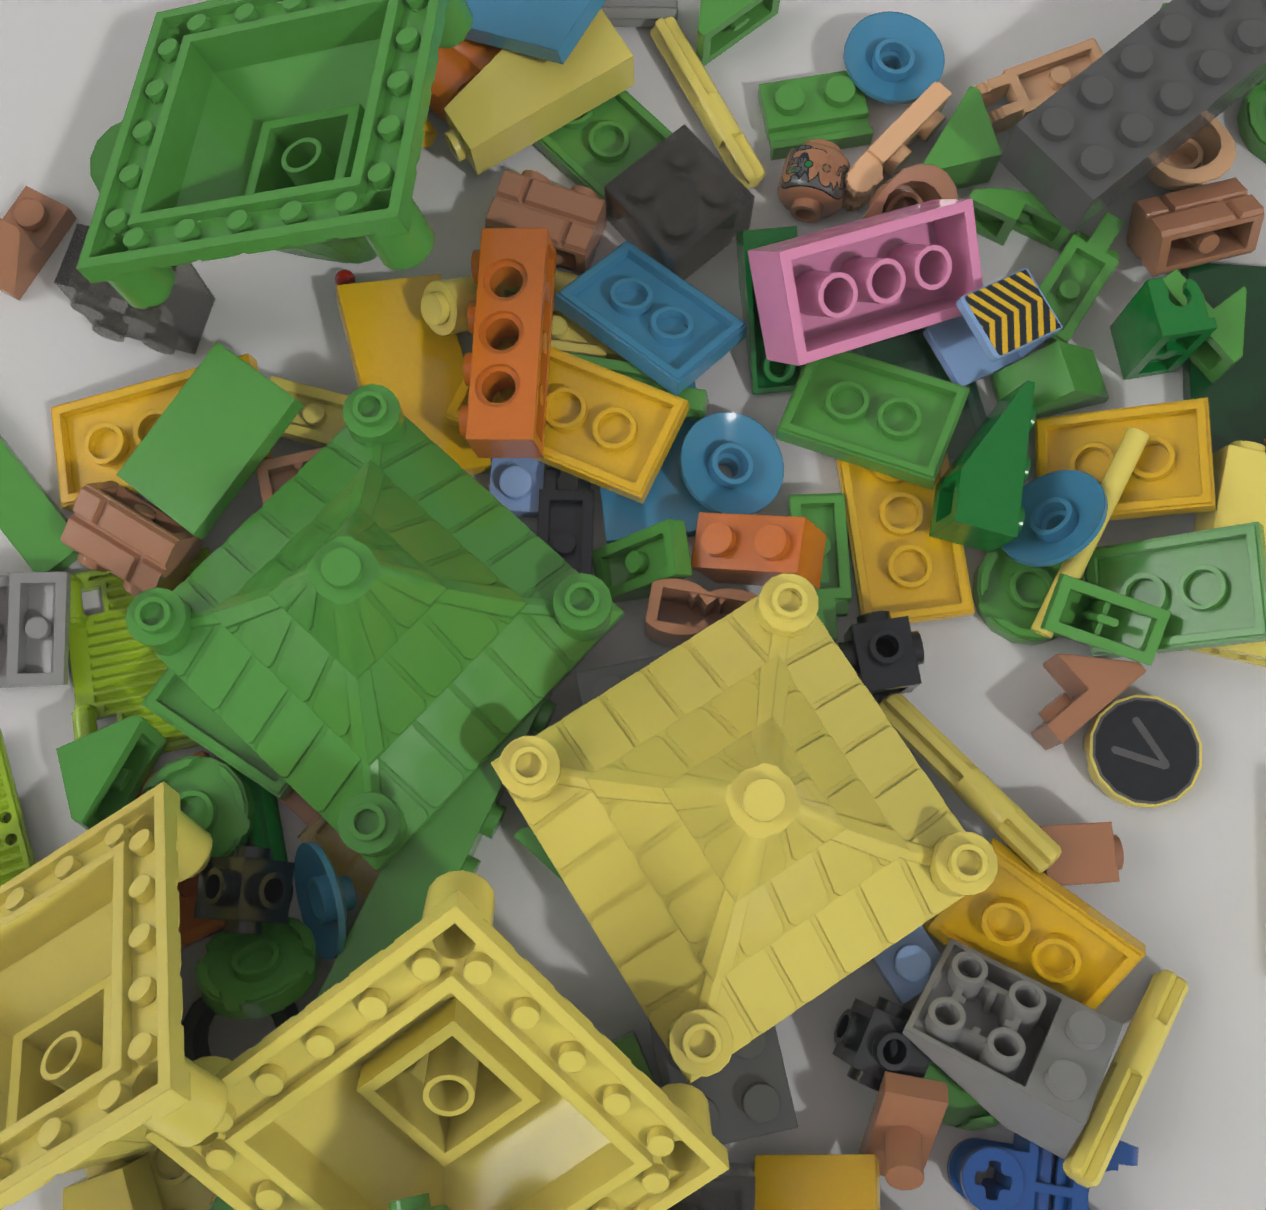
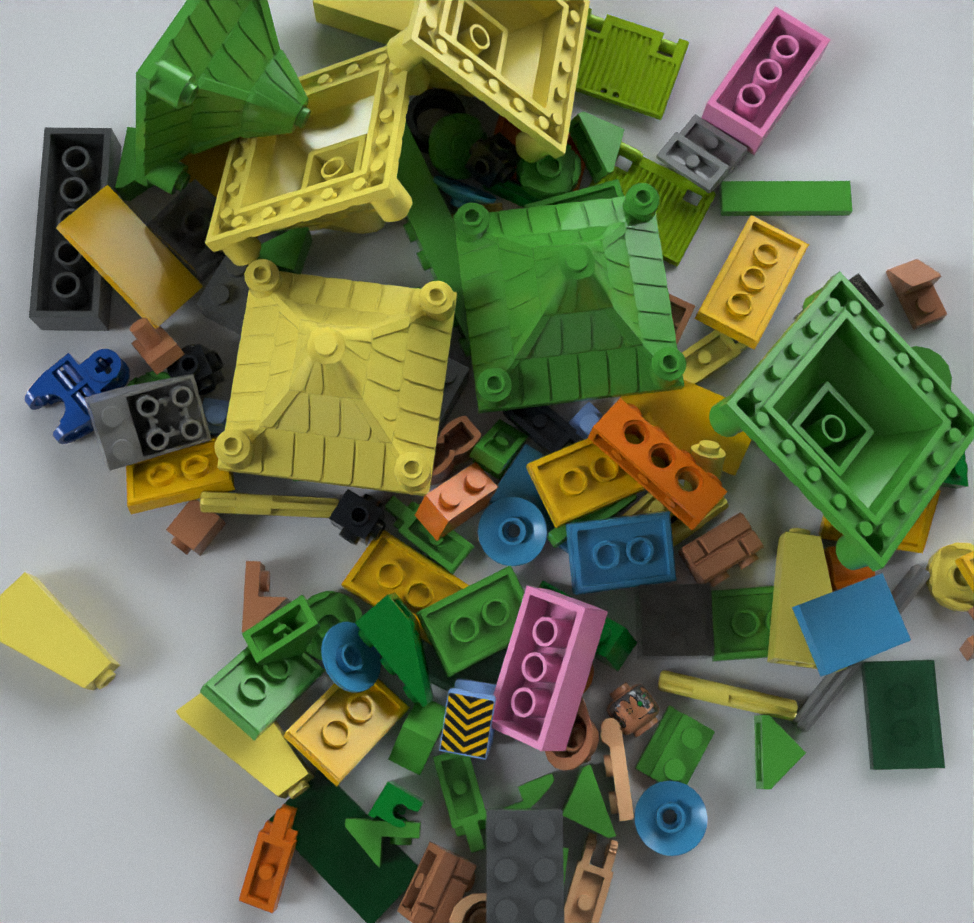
camera: 125 degrees right, 0 degrees up
(129, 538) = (703, 229): nougat brick -> none
(210, 440) = (723, 294): bright green tile -> none
(1113, 485) = (337, 694): light yellow piece -> none
(1126, 1079) = (89, 460): light yellow axle -> none
(1143, 751) = (209, 607): black tile -> none

